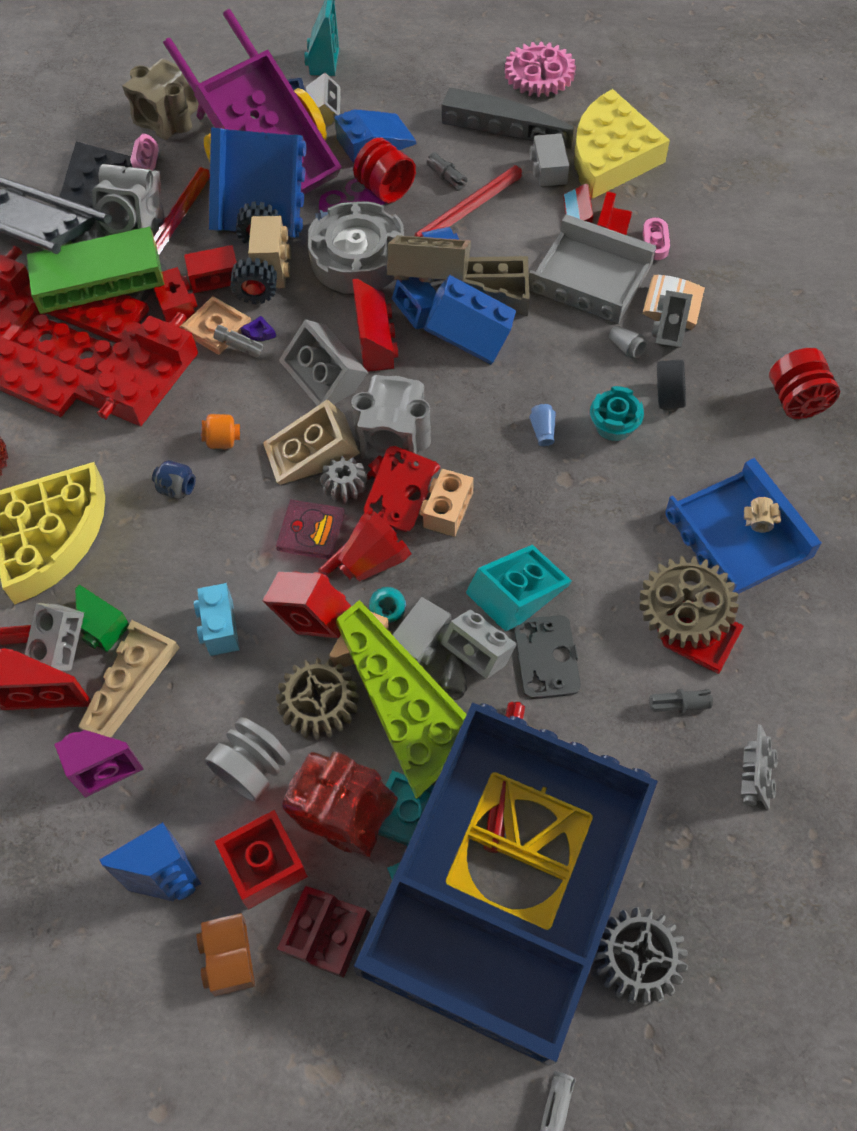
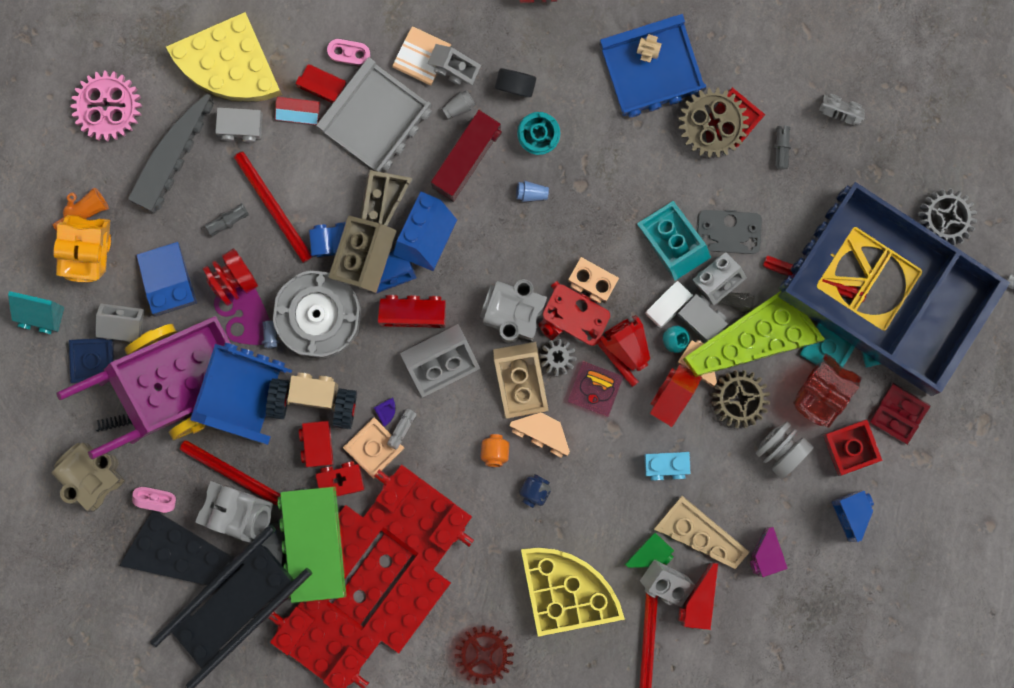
camera: 80 degrees left, 25 degrees up
(227, 955) = (907, 476): dark orange brick -> none
(247, 480) = (543, 432): none -> light nougat slope
(391, 58) = (82, 248): none -> light orange piece
(432, 588) = (669, 304): none -> white slope
(435, 69) = (86, 207): none -> orange piece
(569, 346) = (466, 155): none -> dark red brick

